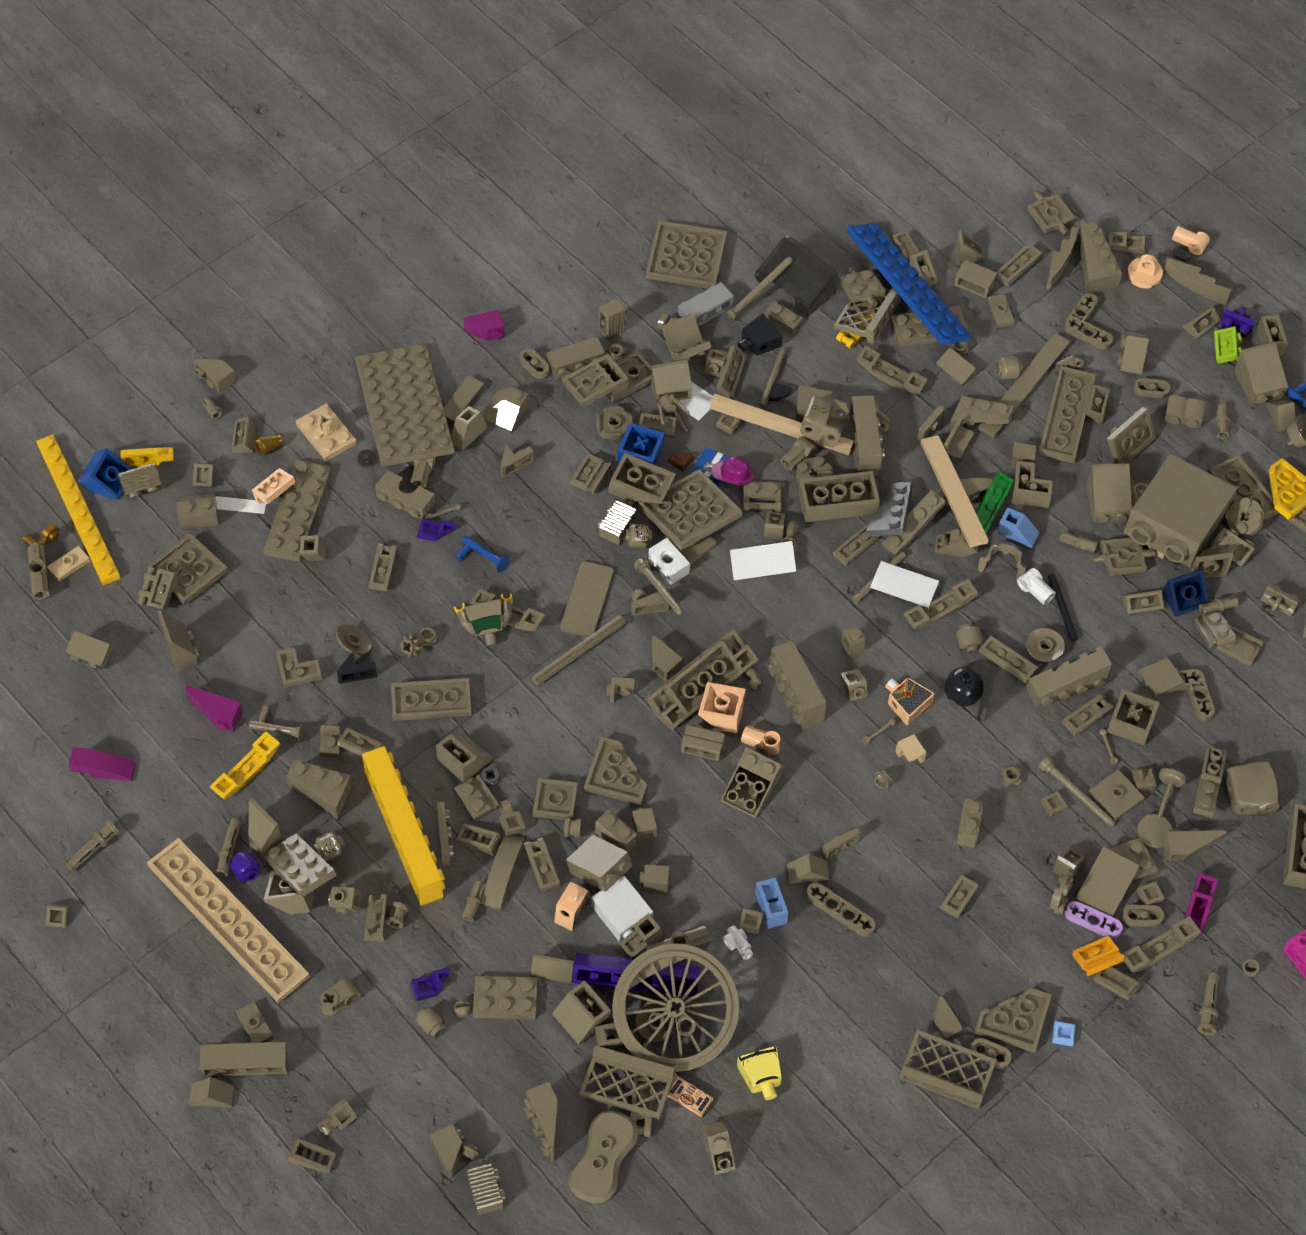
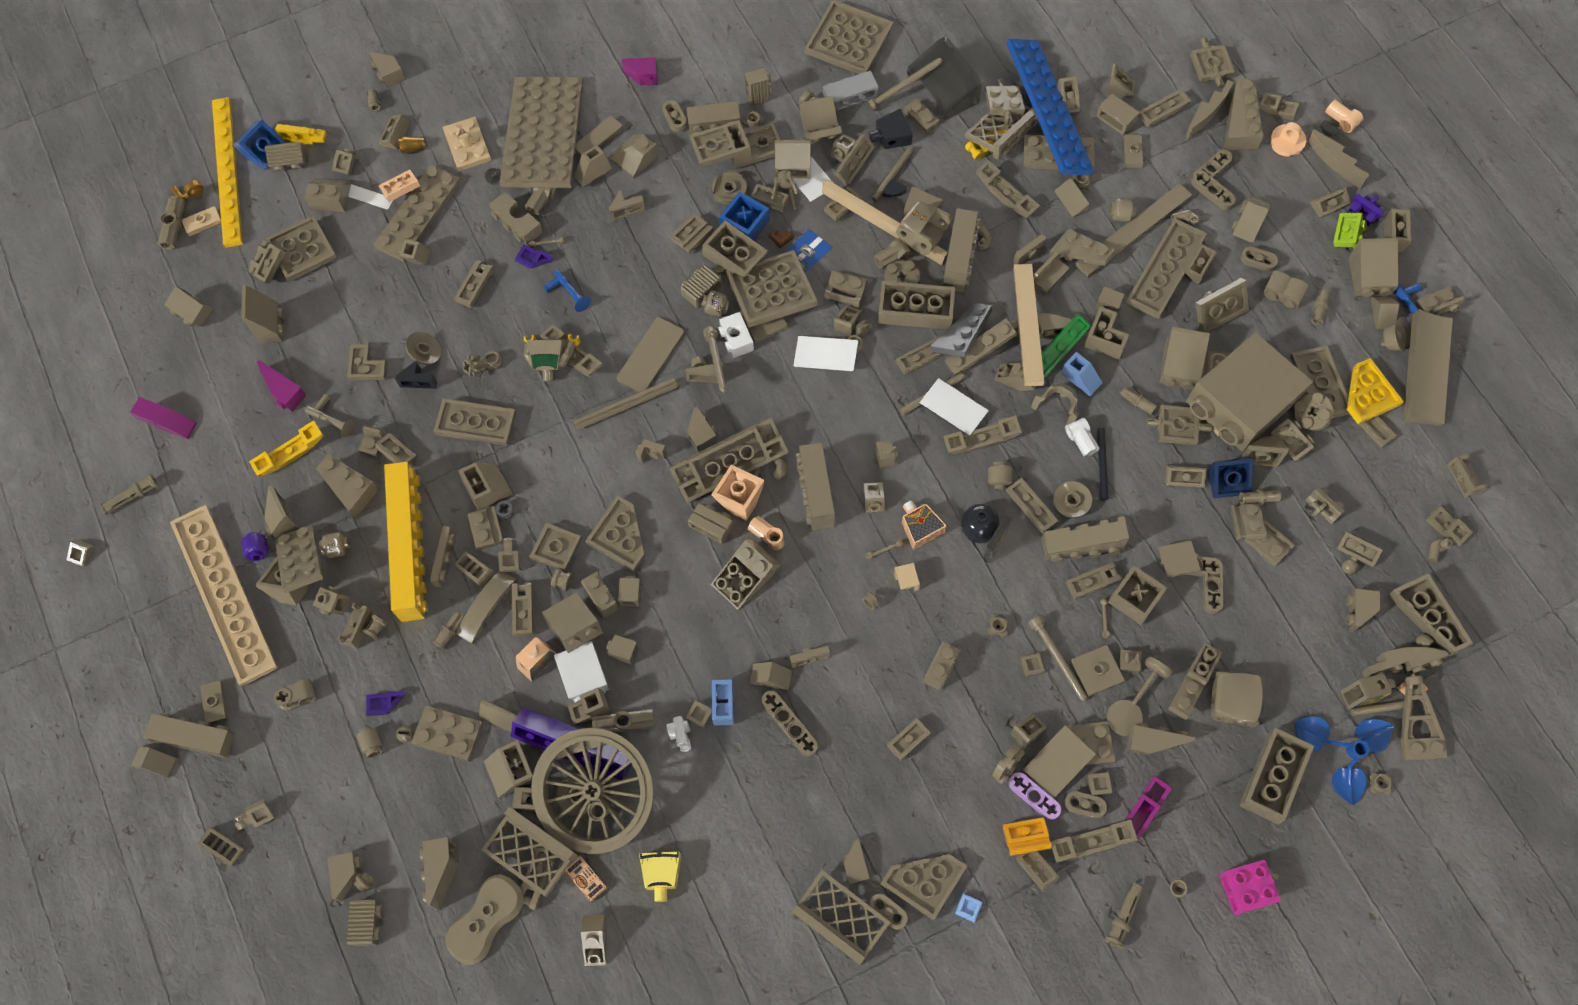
camera: 20 degrees right, 10 degrees up
(226, 855) = (259, 505): dark tan pin -> none
(733, 470) = (825, 258): magenta piece -> none
(905, 244) = (1059, 66): dark tan plate -> none

